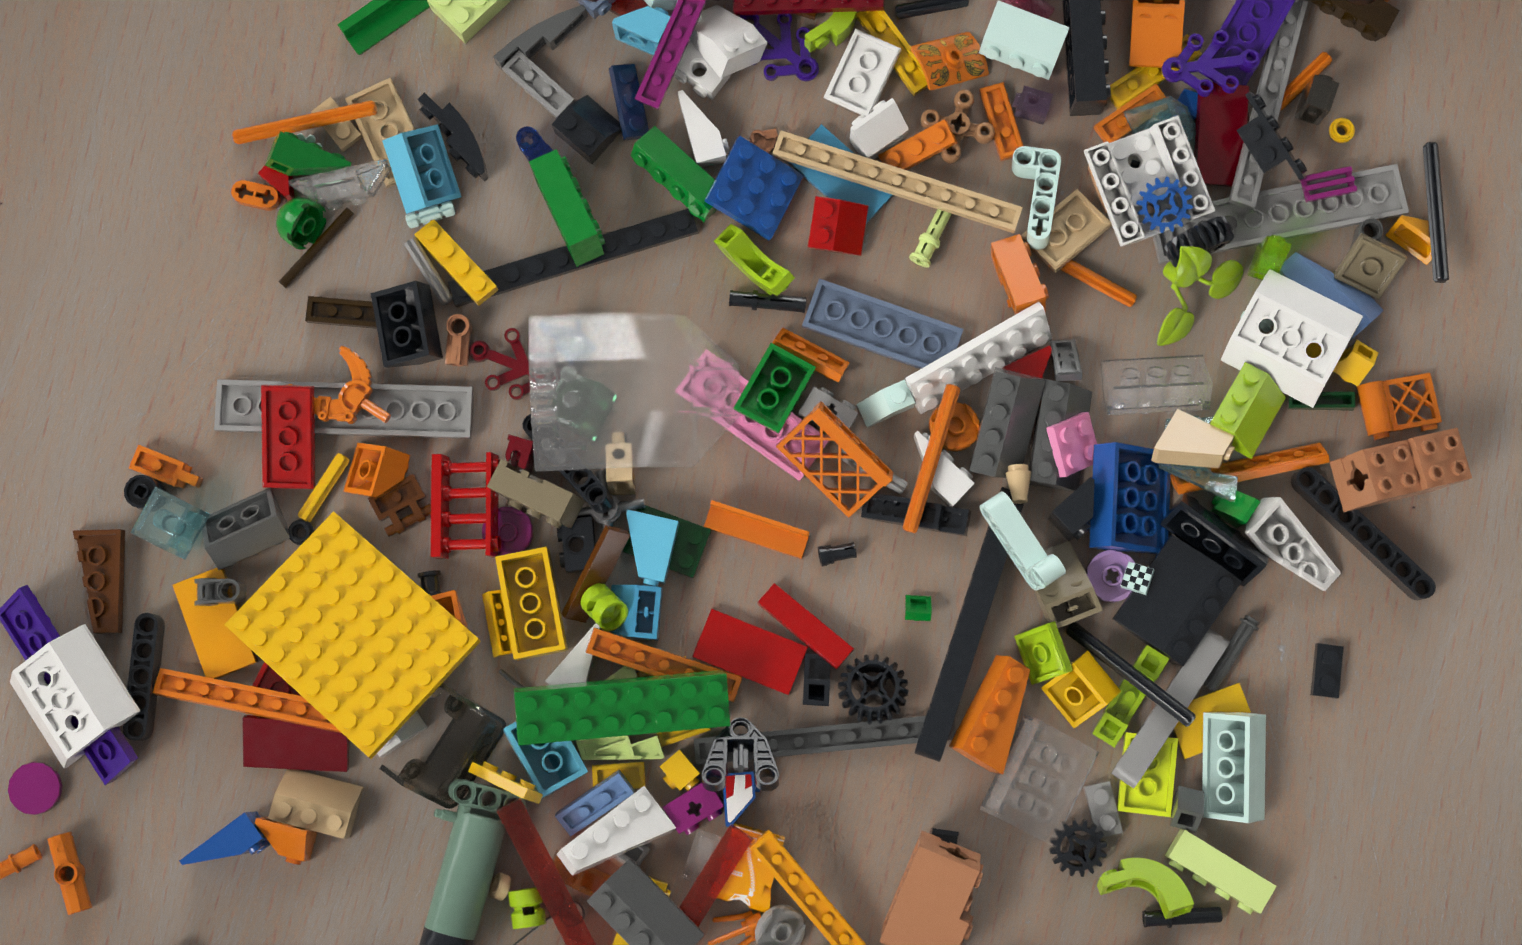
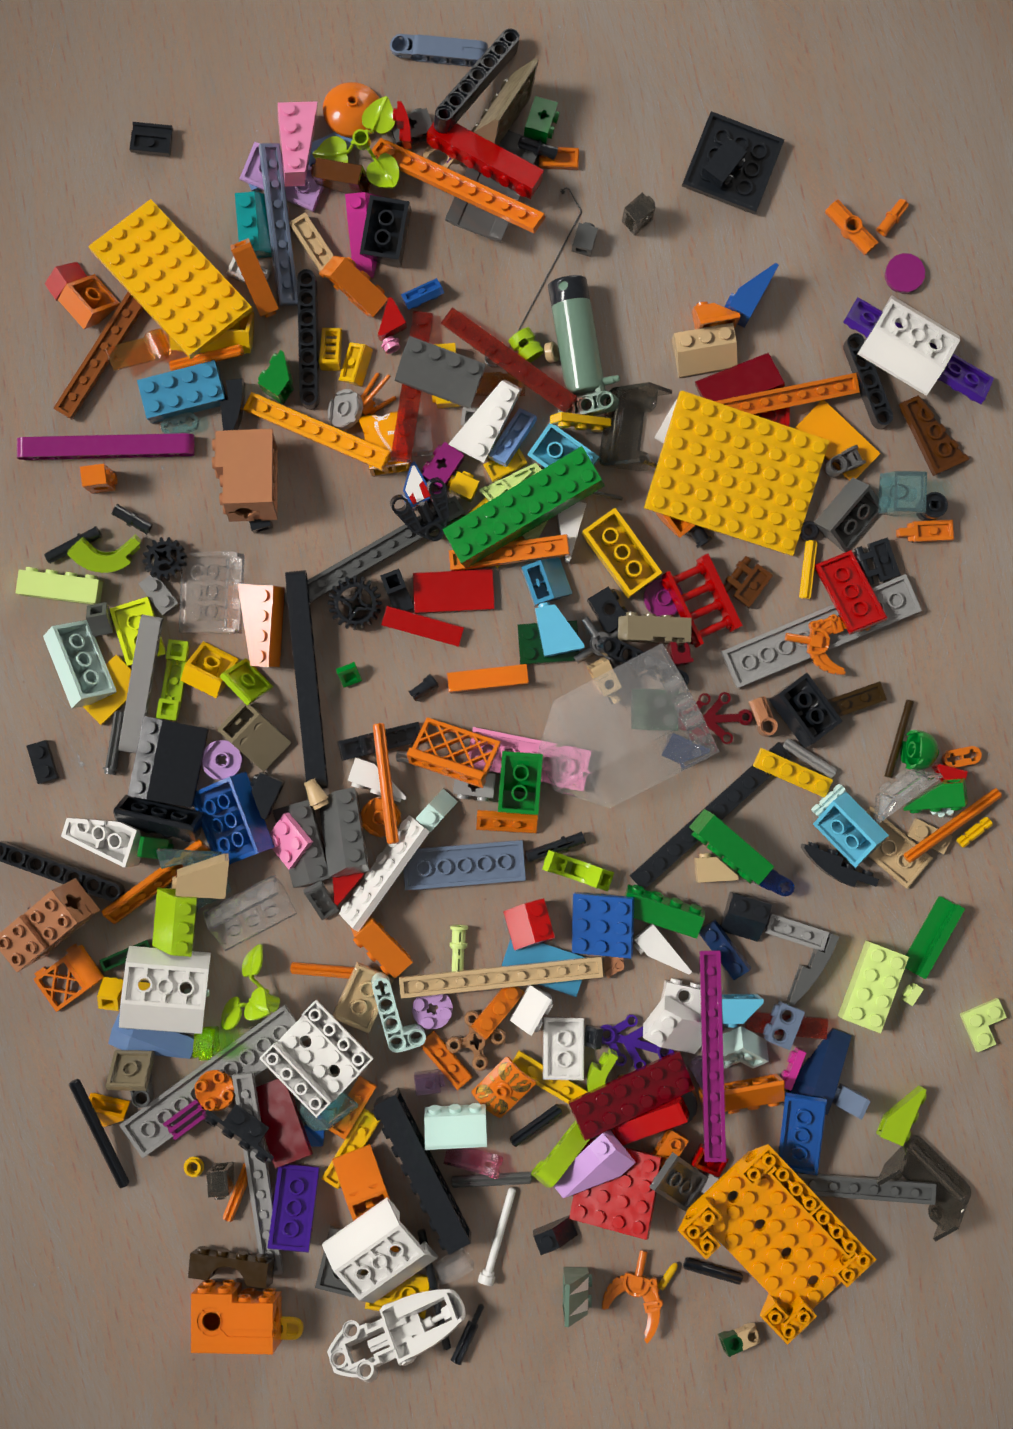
camera: 150 degrees right, 5 degrees up
(232, 457) = (882, 558): none -> black plate
(283, 106) = (974, 832): none -> yellow axle
(375, 470) = (777, 597): orange slope -> none
(497, 623) = (640, 529): yellow piece -> none
(596, 569) = (586, 593): reddish brown tile -> none
(601, 195) = (711, 869): none -> tan slope
(604, 607) = (569, 573): lime wheel -> none
(822, 71) = (593, 1037): none -> black tile
(996, 170) = (428, 1019): none -> lavender plate
(1021, 543) = (295, 750): light aqua beam -> none
(1097, 915) = (132, 519): none -> black pin
(1131, 674) = (176, 693): black axle -> none
(1137, 578) = (202, 764): tile -> none
(1175, 210) = (287, 1044): blue gear -> none
(1207, 65) = (311, 1168): dark purple plant -> none
(1209, 235) = (259, 1030): black gear -> none
(1281, 200) = (214, 1090): none -> orange dish

